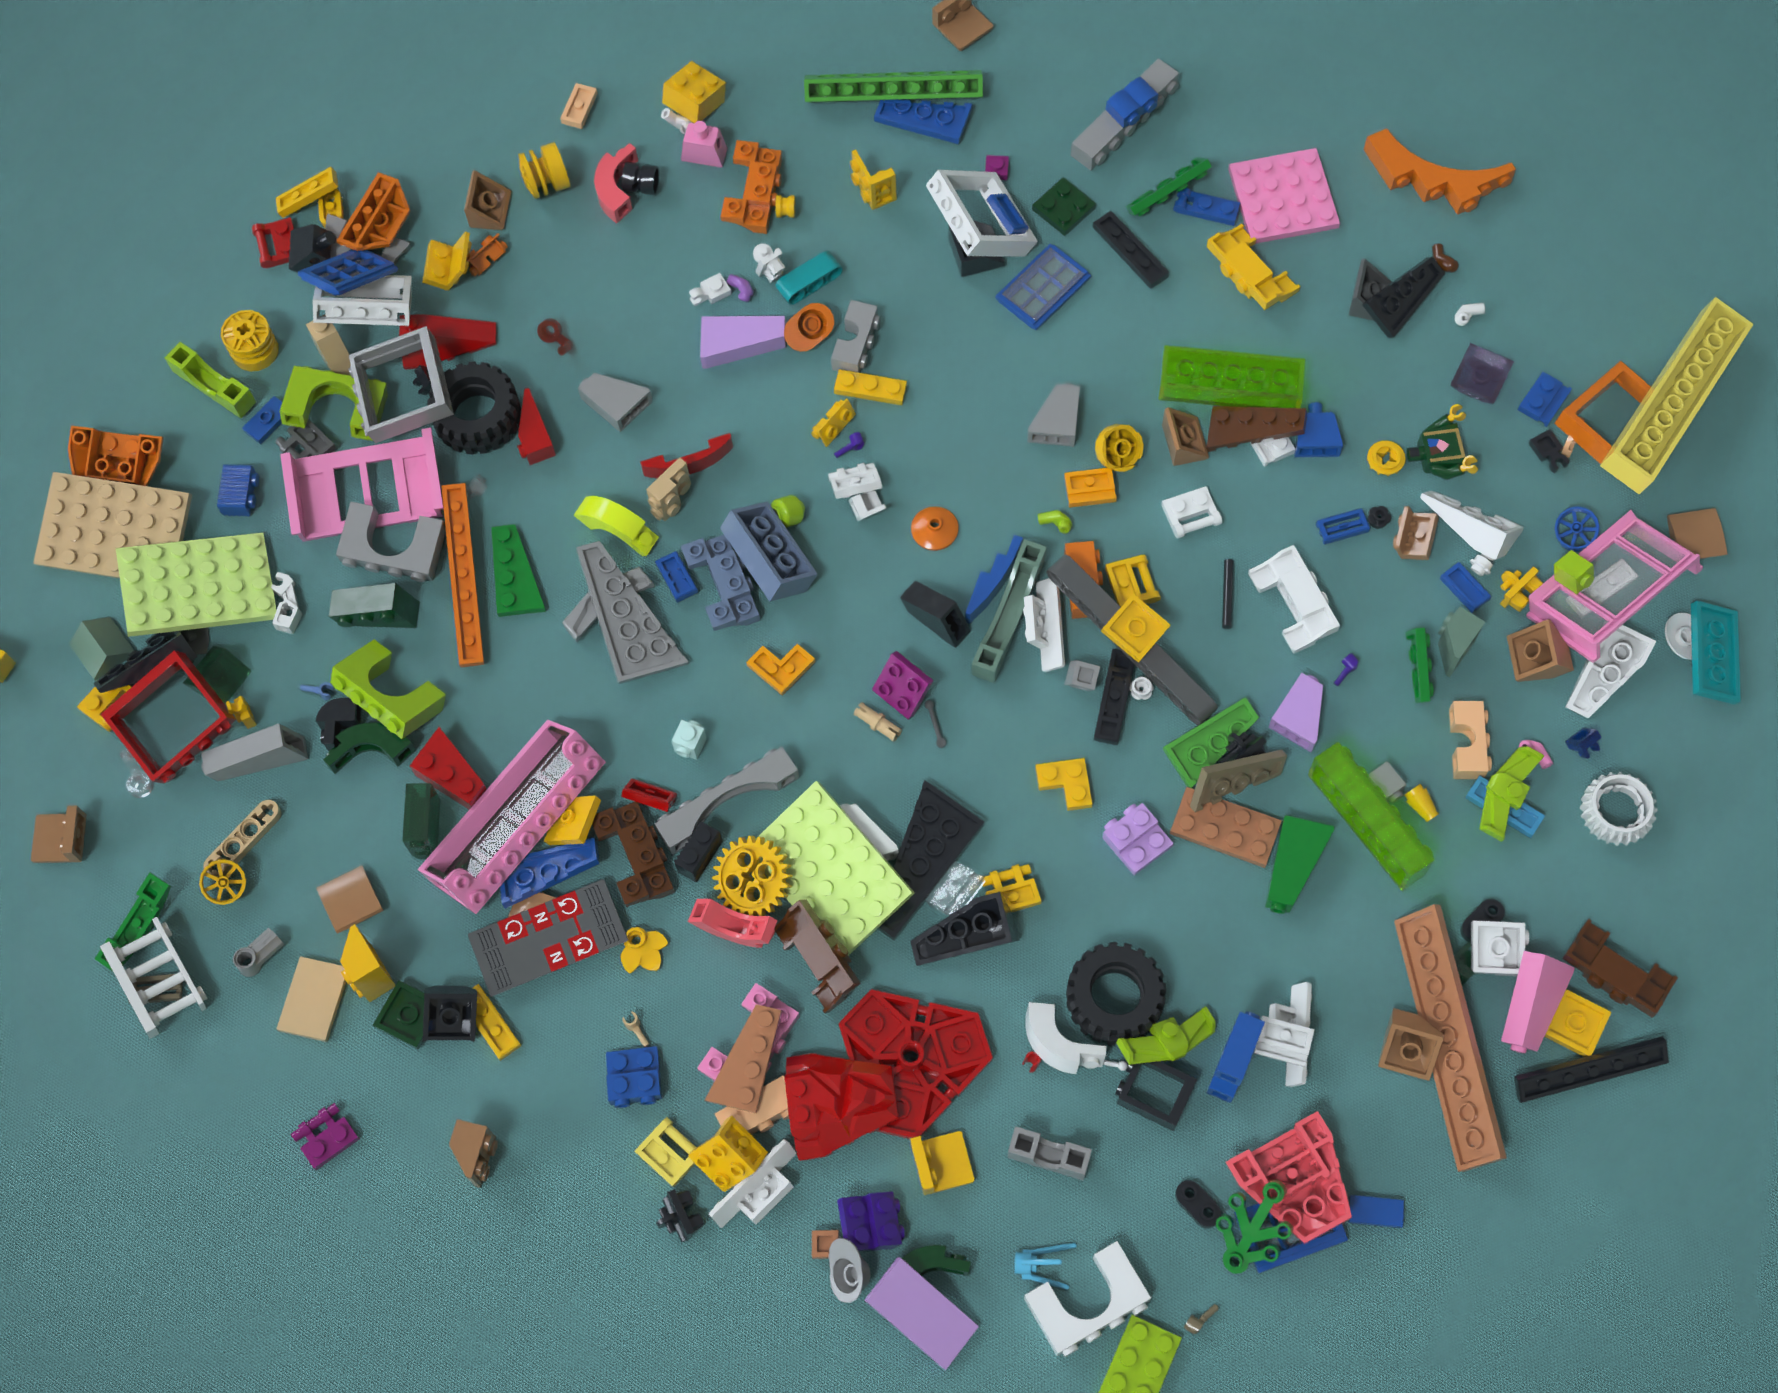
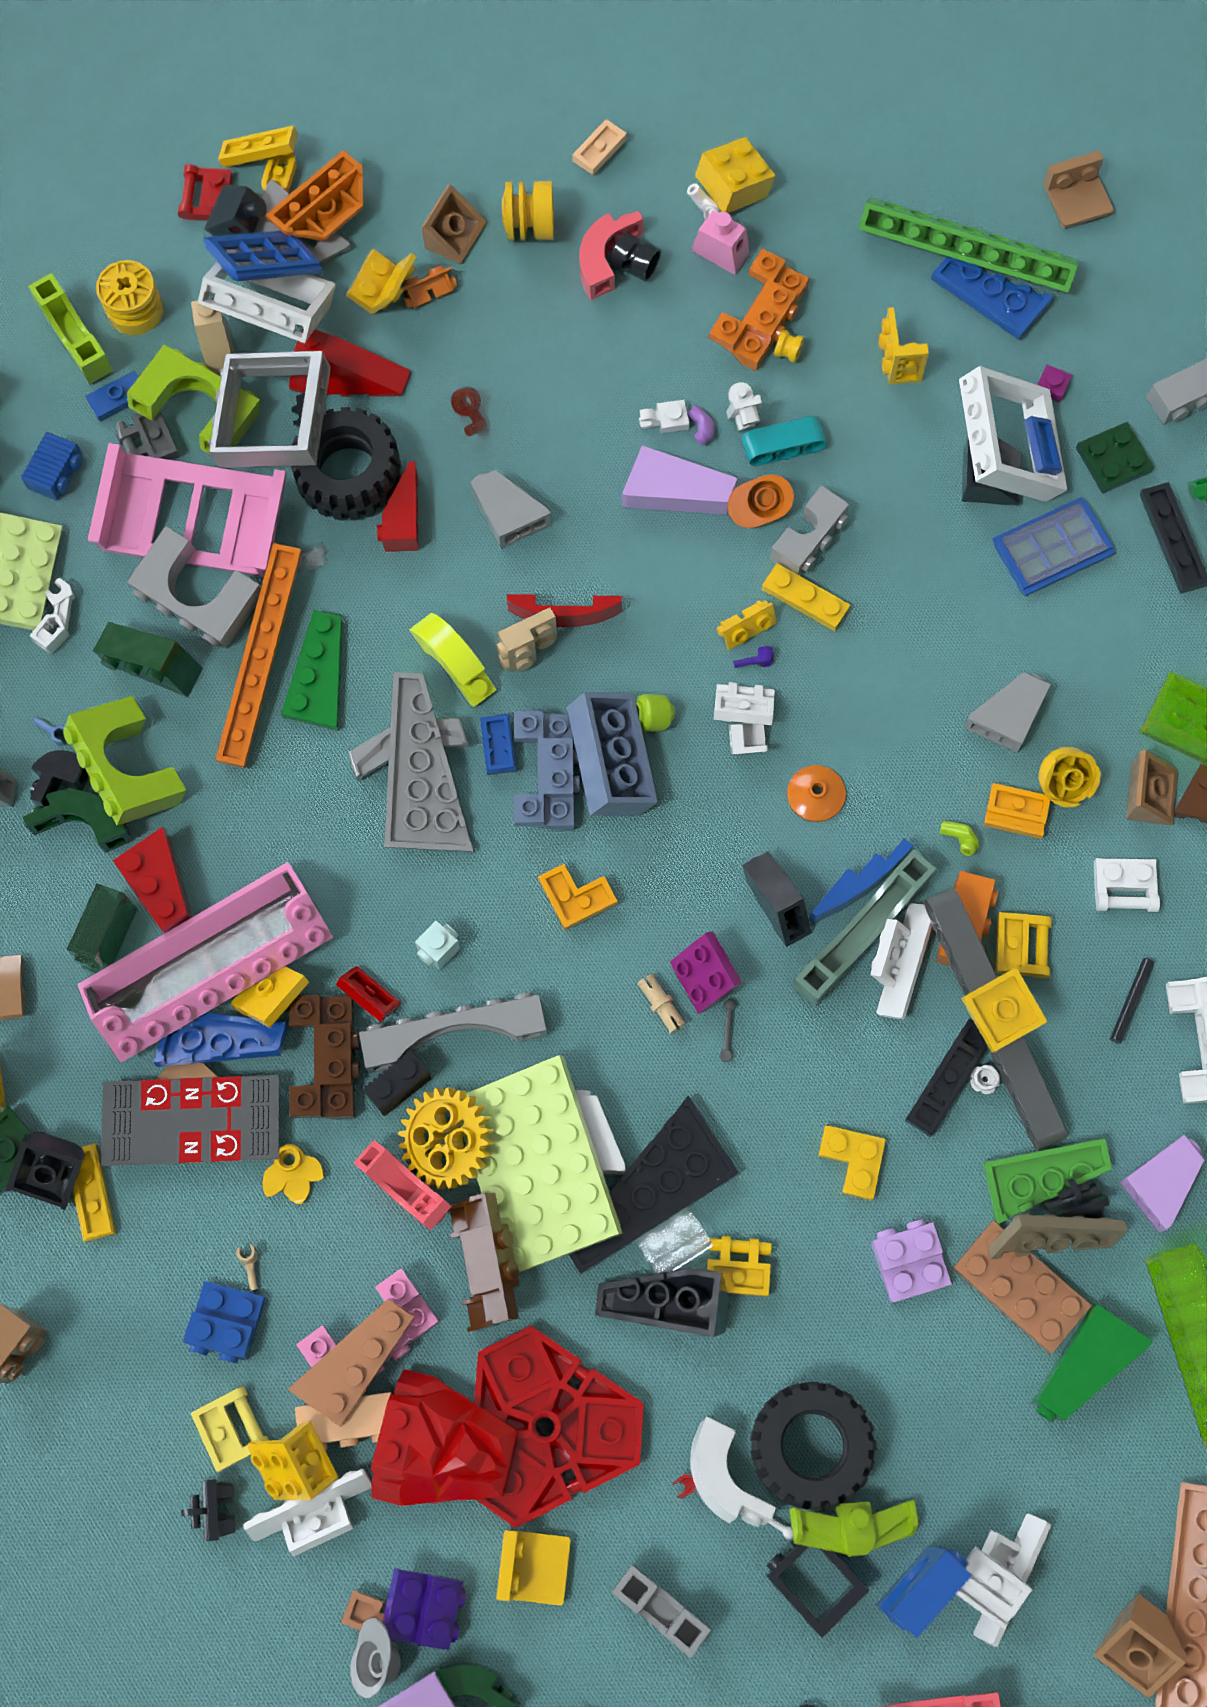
camera: 20 degrees right, 5 degrees up
(1082, 675) = (920, 1039): light grey brick -> none

